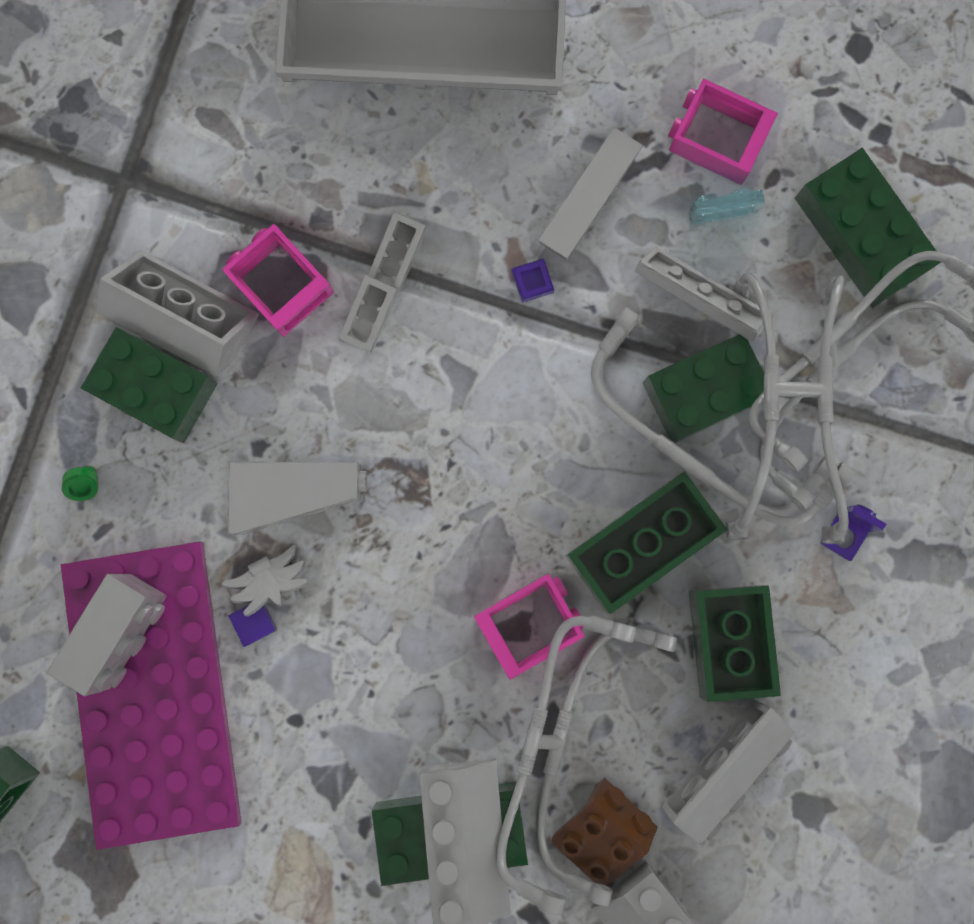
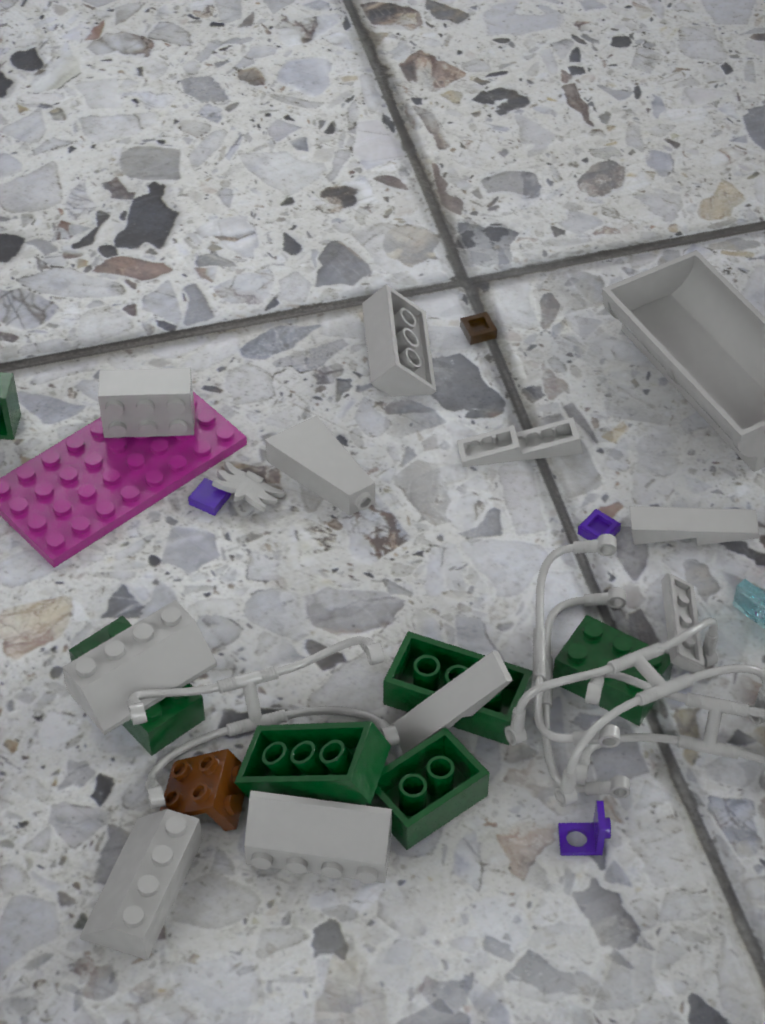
camera: 55 degrees right, 35 degrees down
(80, 483) = (236, 355): green tile -> none
(149, 385) = (335, 355): dark green brick -> none
(205, 216) = (478, 328): none -> dark brown plate
(303, 303) = (464, 404): dark pink window -> none
(556, 592) = (327, 624): dark pink window -> none
(667, 739) = (315, 761): none -> dark green brick
(686, 573) = (453, 701): none -> light grey slope

